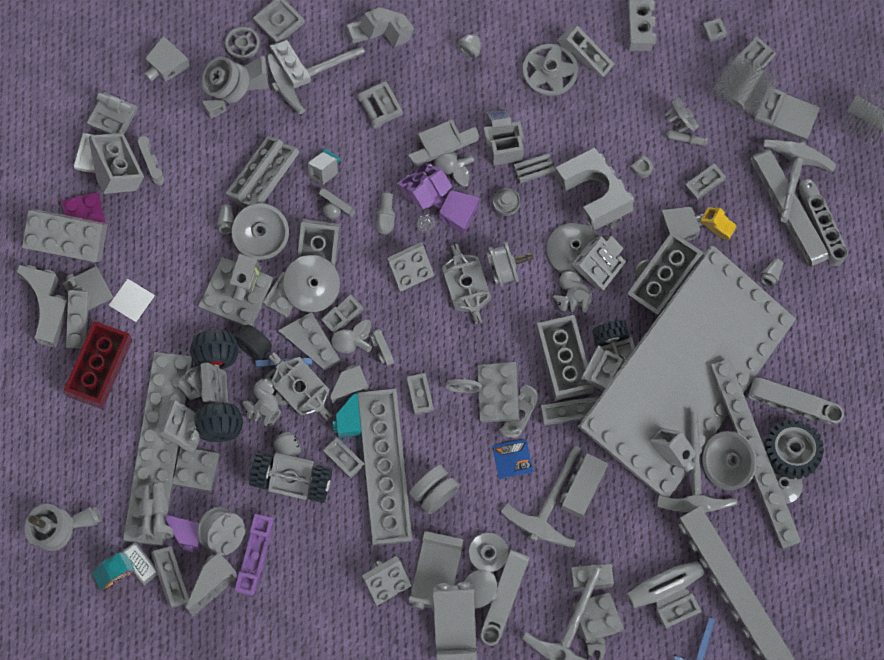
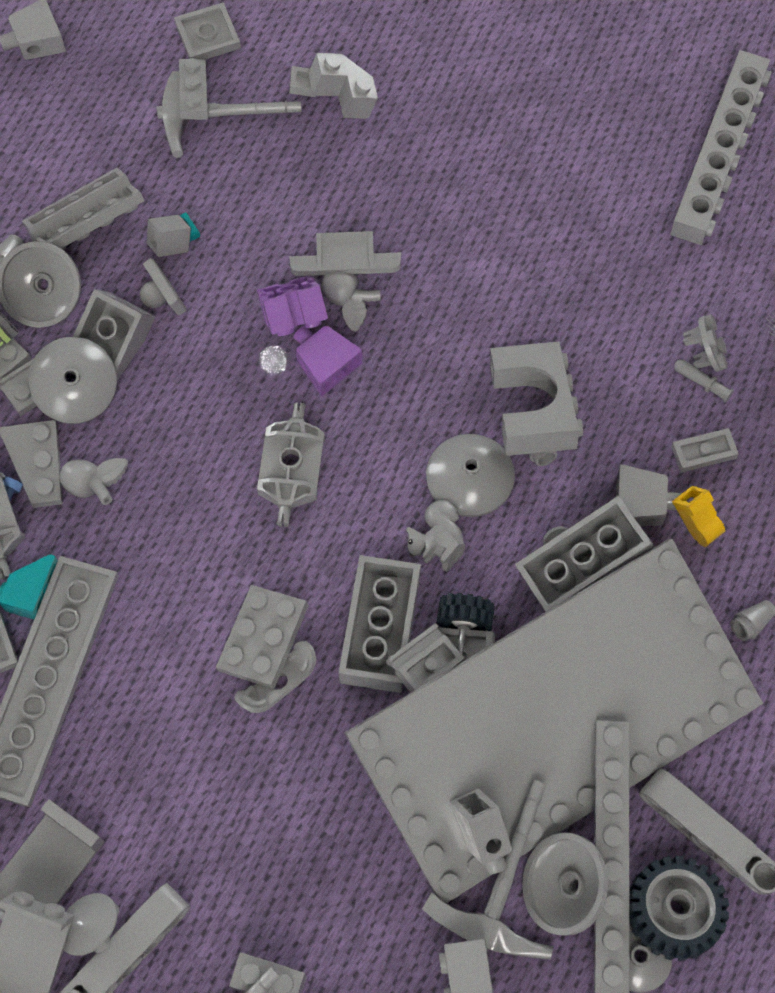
camera: 25 degrees right, 5 degrees down
(214, 107) = (66, 109): light grey slope -> none
(225, 80) = (93, 76): light grey wheel -> none
(242, 43) = (147, 46): light grey wheel -> none
(258, 74) = (141, 86): light grey slope -> none
(343, 314) = (93, 442): light grey slope -> none
(349, 383) = (55, 537): light grey slope -> none
(379, 341) = (126, 517): light grey plate -> none
(385, 101) = (296, 179): light grey plate -> none
(385, 216) = (223, 328): light grey arm -> none
(410, 266) = (219, 408): light grey plate -> none
(420, 394) = (148, 593): light grey plate -> none
(434, 489) = (93, 742): light grey wheel -> none
(463, 386) = (212, 605): light grey wheel -> none
(470, 45) = (446, 149): light grey cone -> none
(492, 543) = (118, 863): light grey dish -> none
(499, 118) = (439, 254): light grey tile -> none
(505, 143) = (434, 290): light grey plate -> none
(505, 264) = (354, 454): light grey wheel -> none
(506, 202) = (400, 372): light grey plate -> none
(512, 458) = (239, 744): blue sticker -> none
(537, 526) = (225, 863): light grey piece -> none
(550, 69) = (545, 219): light grey wheel -> none
(551, 169) = (458, 337): light grey tile -> none
(567, 411) = (345, 702): light grey plate -> none
(583, 485) = (322, 829): light grey brick -> none
(585, 50) = (605, 211): light grey slope -> none
(600, 261) = (496, 503): light grey piece -> none
(642, 167) = (620, 396): light grey tile -> none

